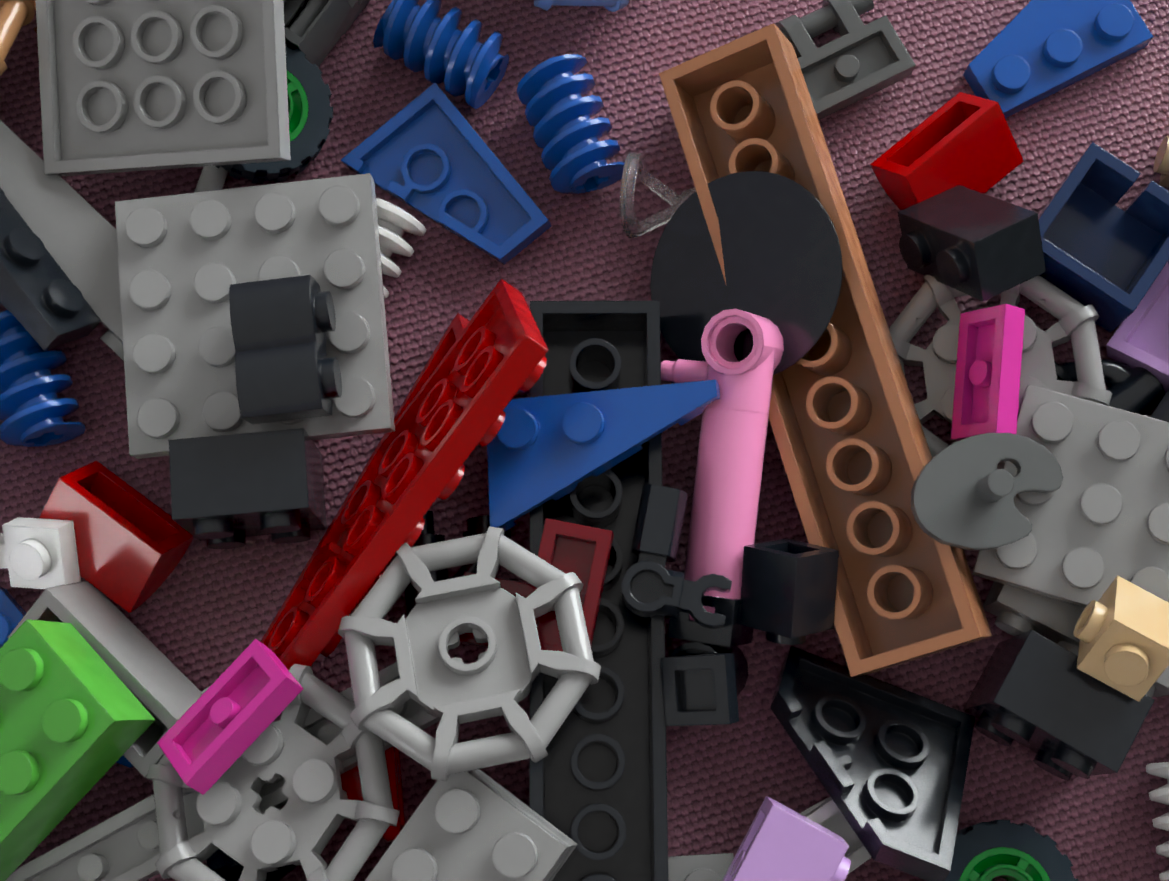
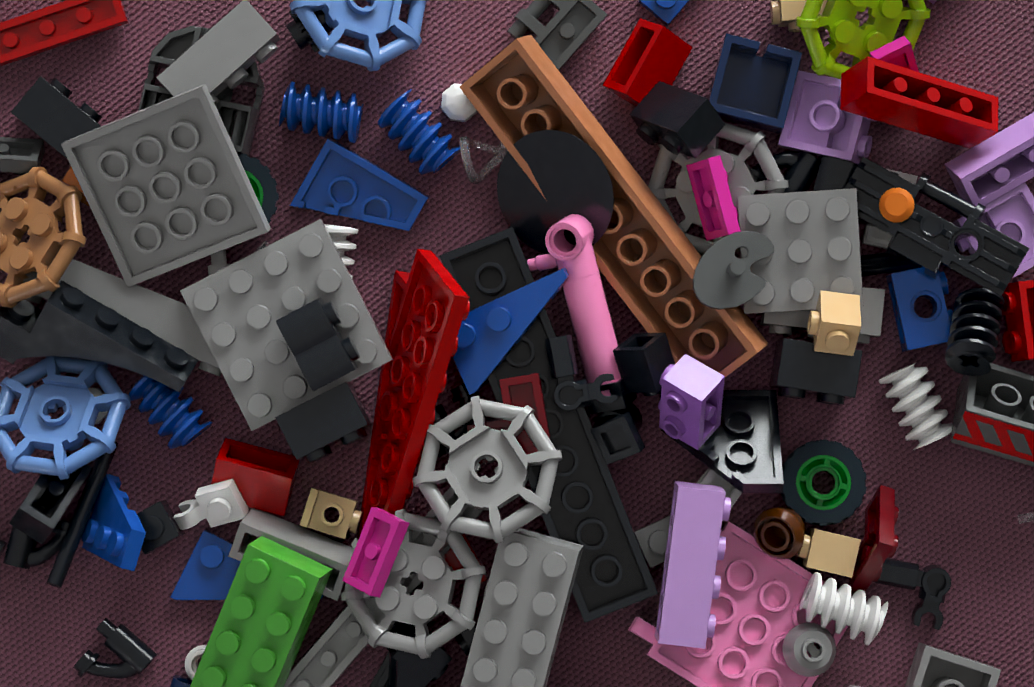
camera: 20 degrees left, 10 degrees up
(181, 620) = (315, 510): none -> tan brick
(646, 113) = (456, 104): none -> white tile
(842, 673) = (690, 401): none -> medium lavender brick

